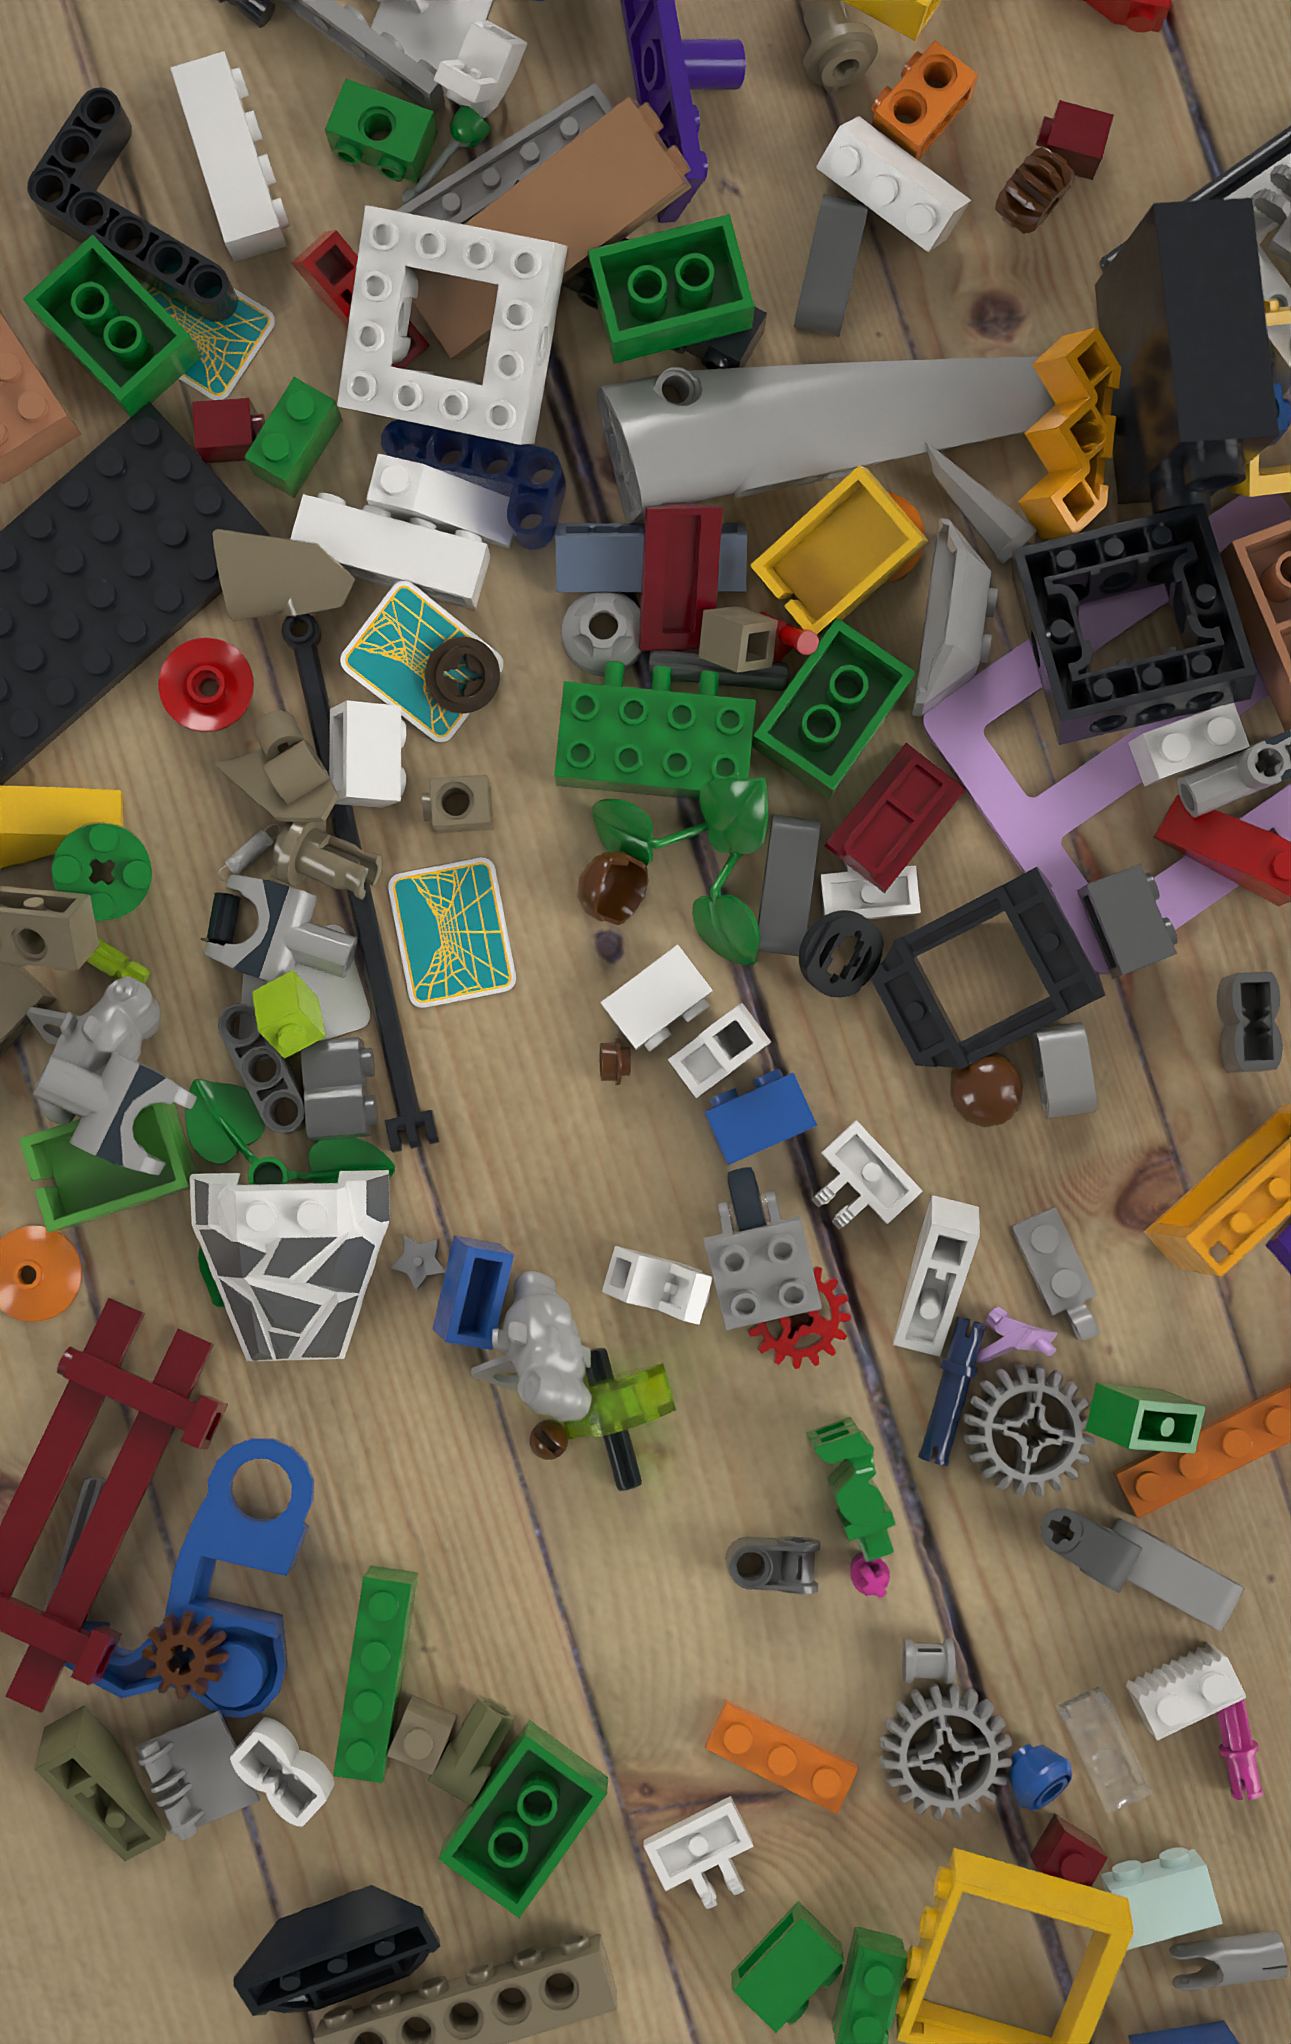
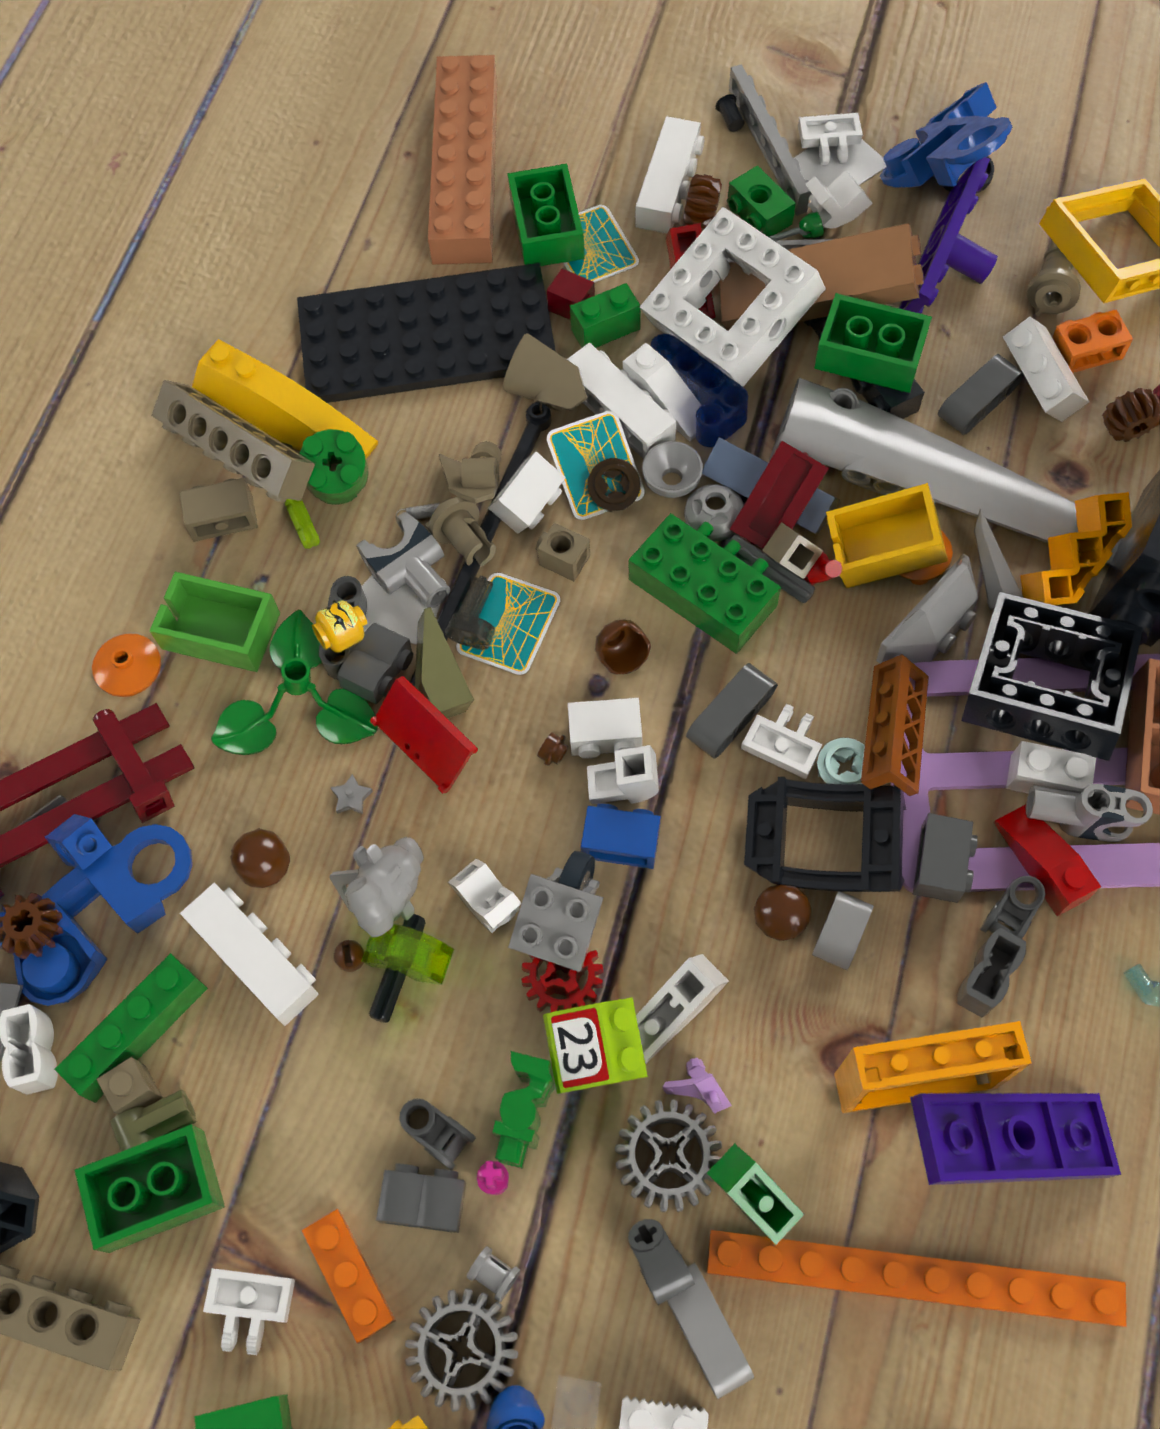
camera: 35 degrees right, 20 degrees down
(110, 1105) = (237, 575): light grey connector -> none
(114, 1024) = (257, 552): light grey piece -> none
(118, 225) = (575, 146): black beam -> none
(161, 1524) = (78, 841): none -> blue brick
(190, 668) = (461, 401): red dish -> none
(223, 919) = (383, 534): black piece -> none
(275, 1084) = (339, 626): none -> yellow head
(288, 1014) = (379, 600): lime brick -> none
(291, 1258) = (276, 738): wedge -> none
(306, 180) = (702, 200): none -> reddish brown gear
(370, 1398) = (260, 858): none -> reddish brown hair
(407, 974) = (466, 626): none -> clear smoke piece
(425, 1064) = (437, 670): none -> olive slope
(441, 1511) = (250, 954): none -> white brick
(459, 1143) = (432, 739): none -> red door
(472, 1292) = (368, 824): blue piece -> none
(517, 587) = (672, 458): none -> light grey piece
(736, 824) = (722, 626): green plant -> none
(808, 1639) = (421, 1199): none -> dark grey brick
(832, 708) = (826, 623): green brick -> none
(833, 929) = (750, 746): black piece -> none
(870, 1173) = (670, 917): white hinge -> none
(888, 1374) = (594, 1045): none -> slope
(895, 817) = (823, 709): dark red piece -> none
(952, 1390) = (633, 1095): dark blue pin -> none
(970, 856) = (841, 750): none -> light aqua gear
(981, 795) = (888, 722): none -> dark orange fence
(1057, 1269) = (757, 1060): light grey plate -> none
(1233, 941) = (1012, 911): none -> dark grey piece

